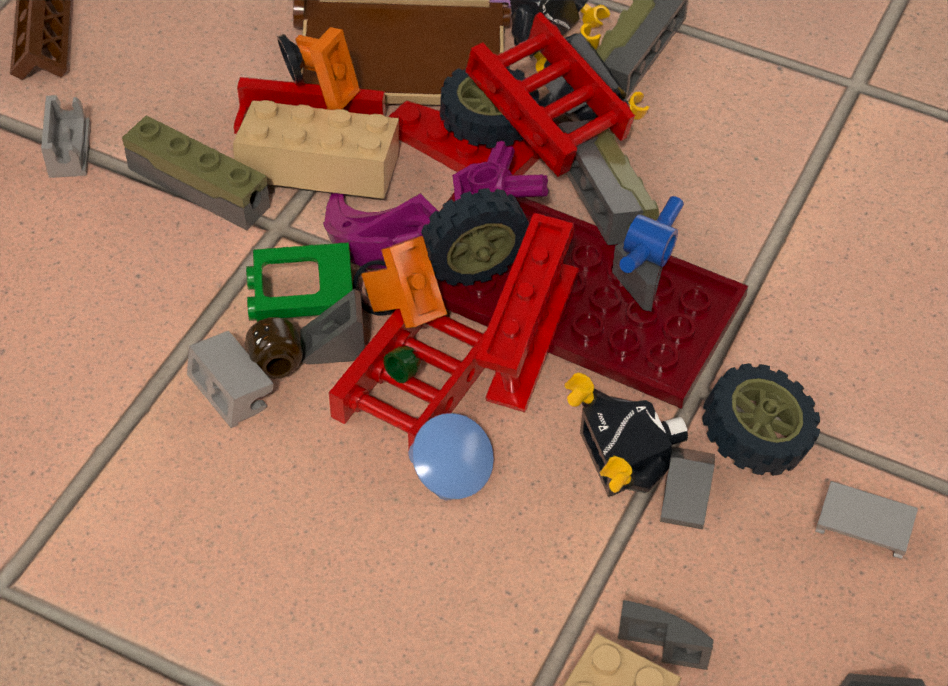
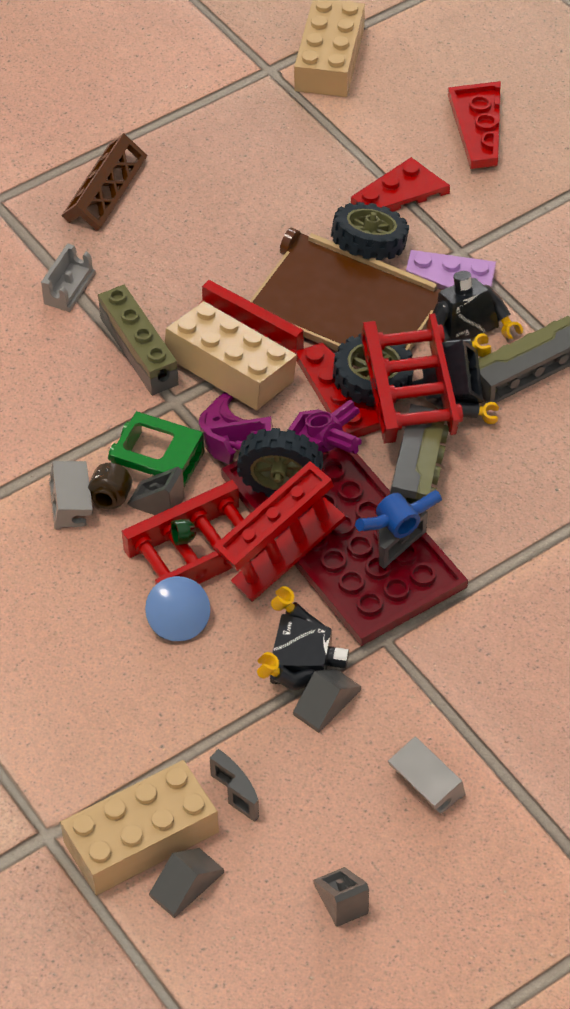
camera: 30 degrees right, 0 degrees up
(329, 59) = (263, 293): orange piece -> none
(403, 285) = (215, 476): orange piece -> none
(741, 432) = (421, 653): black wheel -> none

